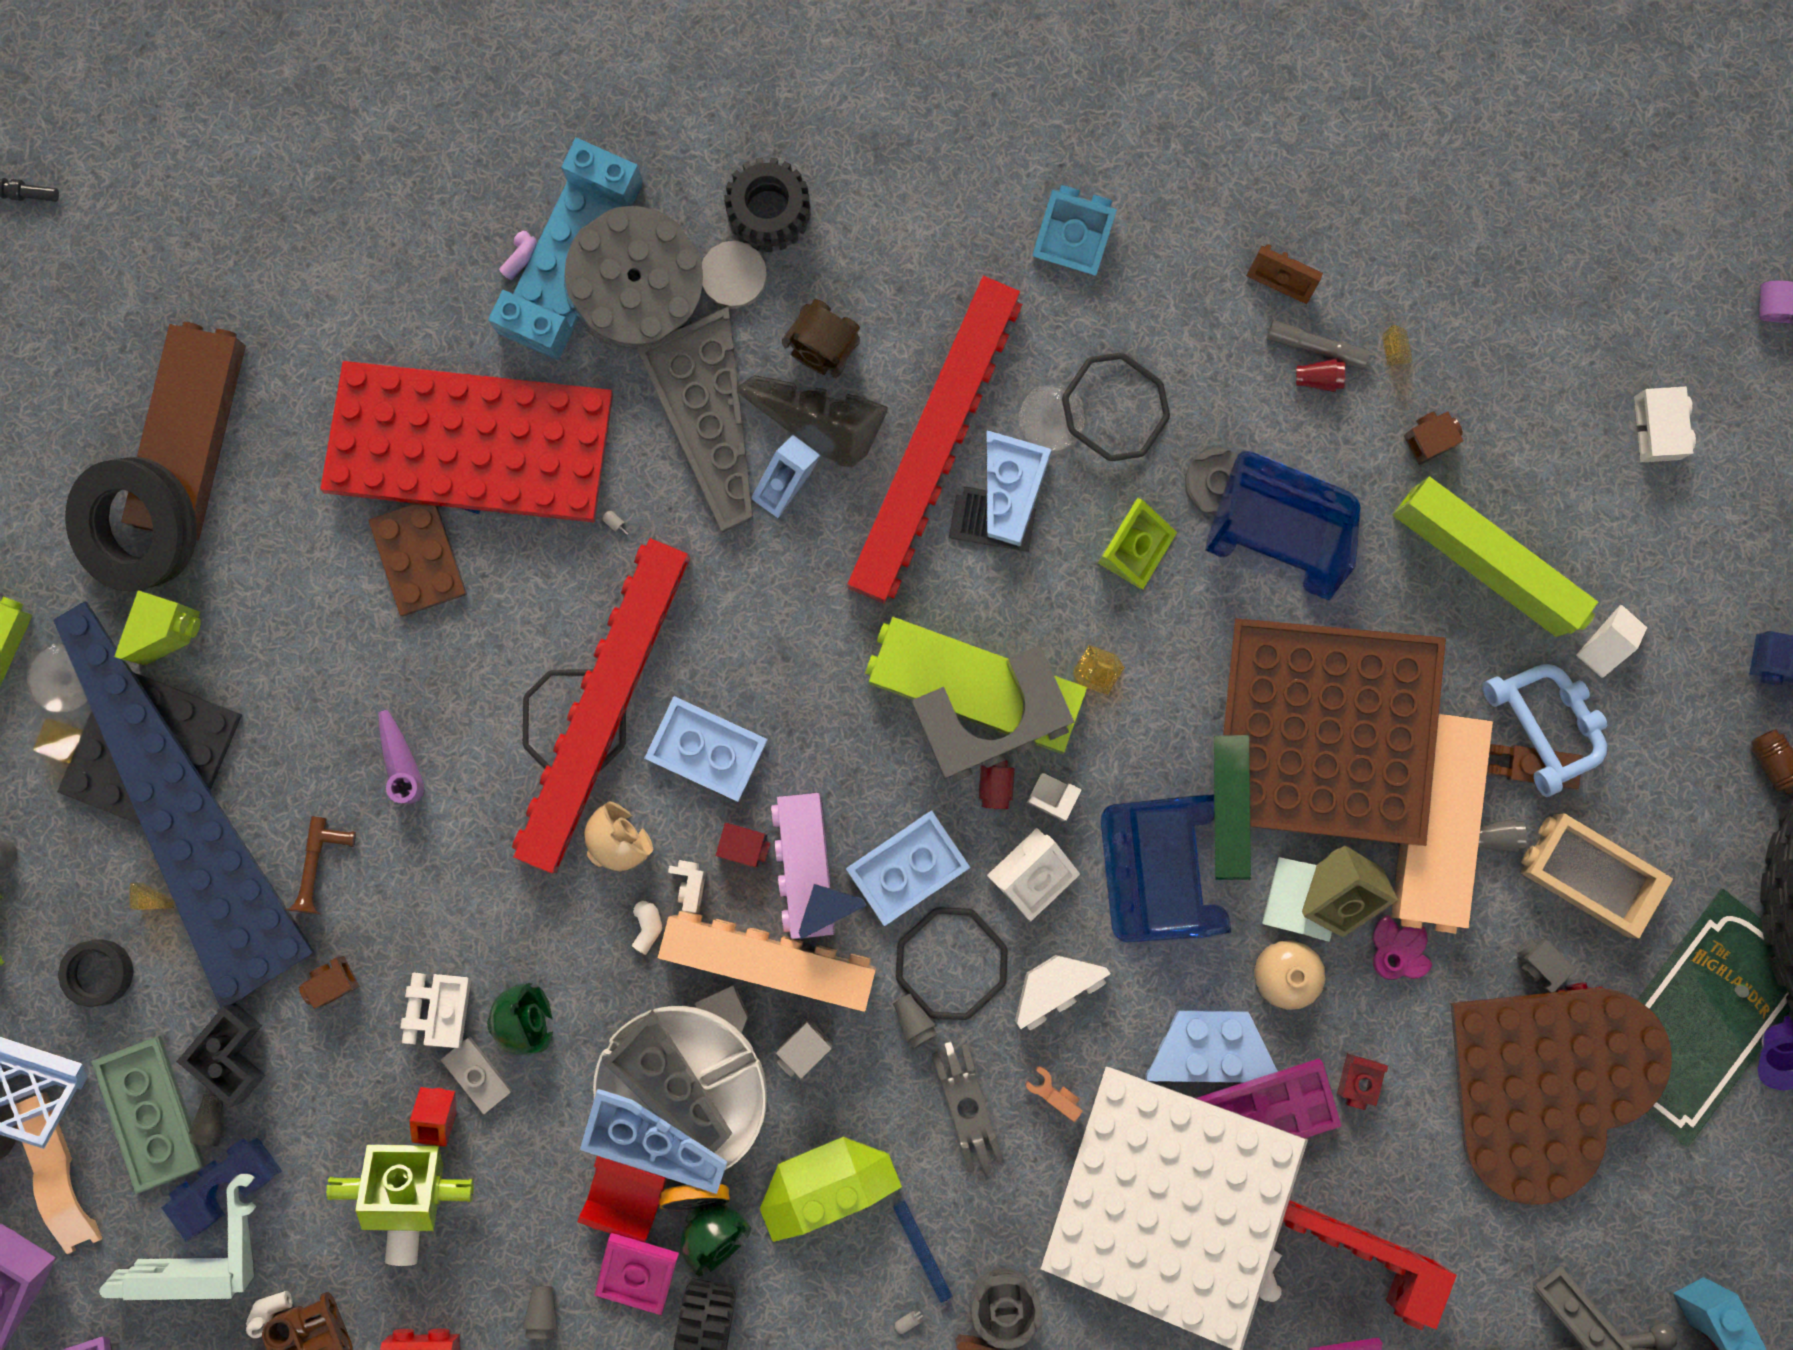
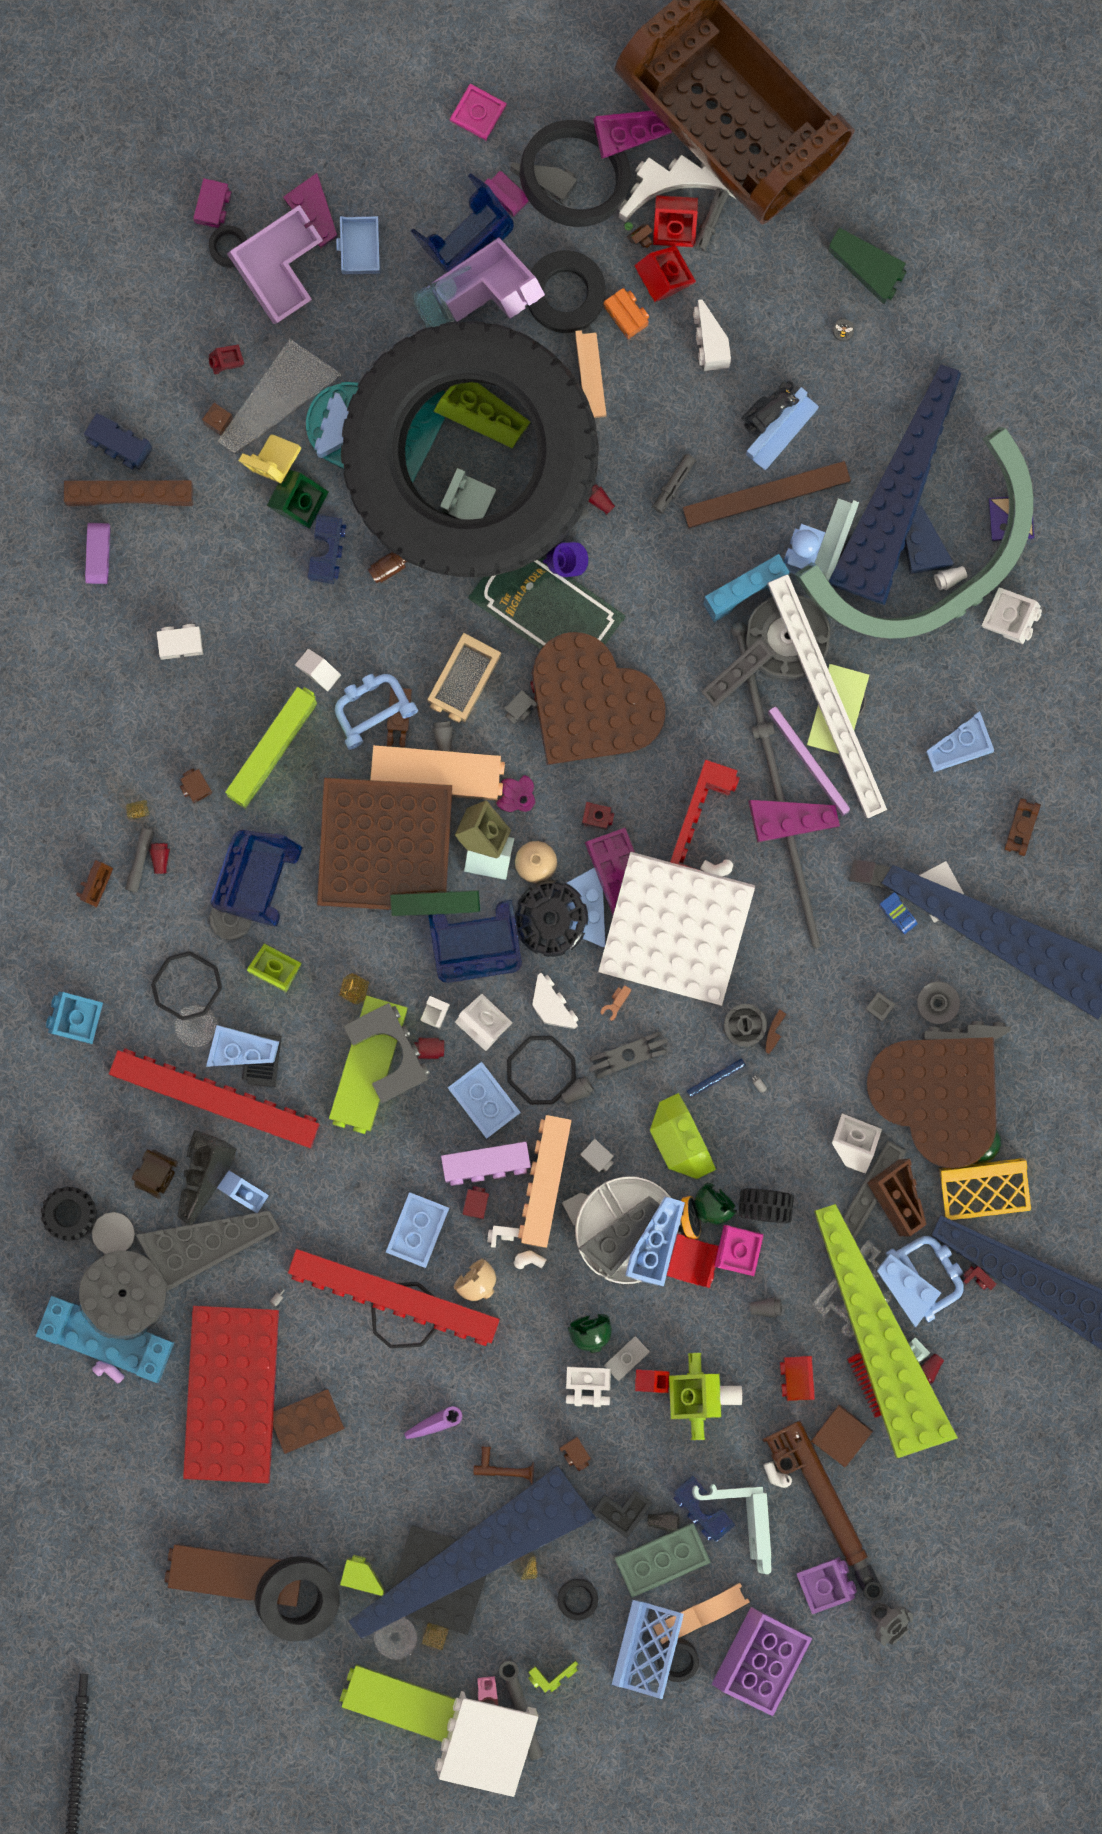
camera: 90 degrees left, 0 degrees up
(827, 907) = (510, 1146): dark blue slope -> none
(1191, 1014) = (563, 918): none -> black plate

